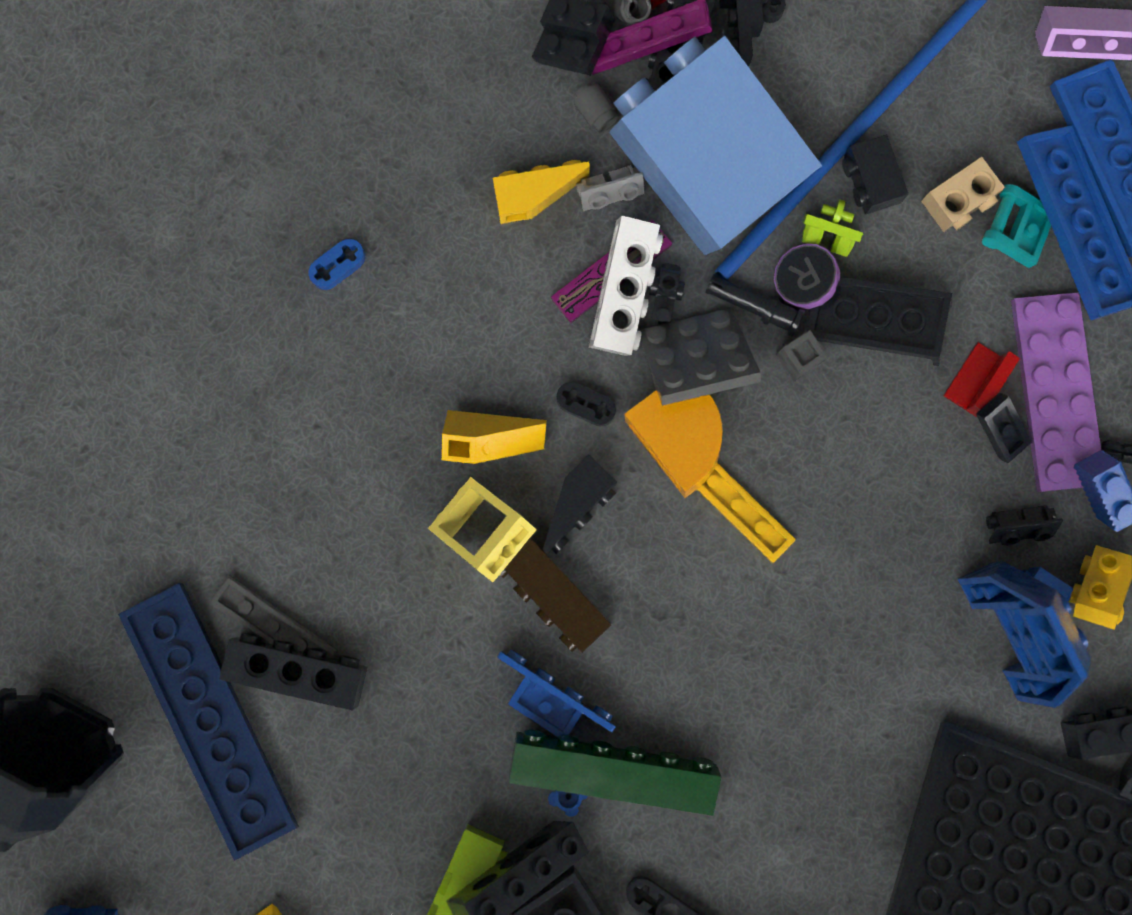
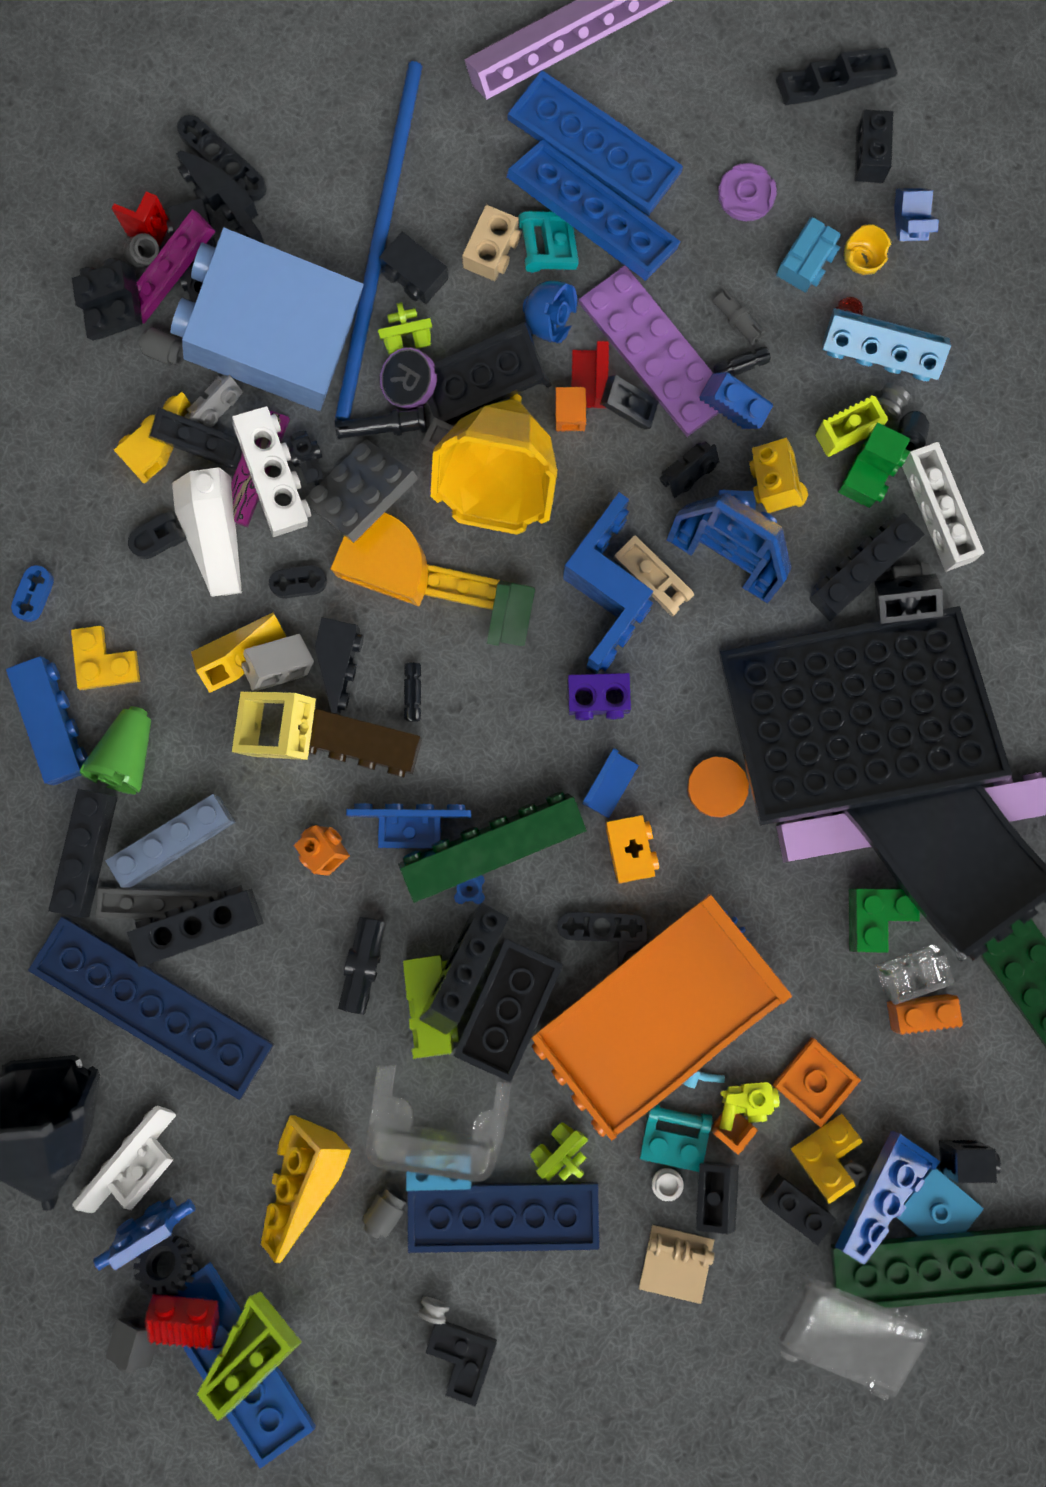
camera: 30 degrees left, 0 degrees up
(99, 861) = (132, 1167): none -> white bracket
(233, 537) = (83, 853): none -> black brick
(278, 392) = (47, 719): none -> blue brick
(320, 576) = (170, 841): none -> sand blue brick
(327, 465) = (121, 753): none -> bright green cone
(352, 369) = (96, 667): none -> yellow plate
(424, 806) = (362, 965): none -> black piece
(453, 673) = (321, 849): none -> orange brick
(469, 281) = (145, 541): none -> black plate
(520, 470) = (276, 662): none -> light grey hinge
(536, 298) = (207, 519): none -> white wedge
(574, 213) = (195, 438): none -> black tile
(629, 575) = (412, 692): none -> black axle
(729, 871) = (625, 866): none -> light orange brick
(761, 780) = (610, 784): none -> blue panel
(767, 560) = (511, 613): none -> dark green panel
(806, 683) = (597, 686): none -> dark purple brick
(842, 418) = (496, 469): none -> yellow piece
(862, 849) = (718, 787): none -> orange tile
(878, 595) = (608, 584): none -> blue bracket
(925, 606) = (654, 573): none -> tan plate
(942, 399) = (570, 409): none -> orange panel
(982, 290) = (550, 306): none -> blue cylinder

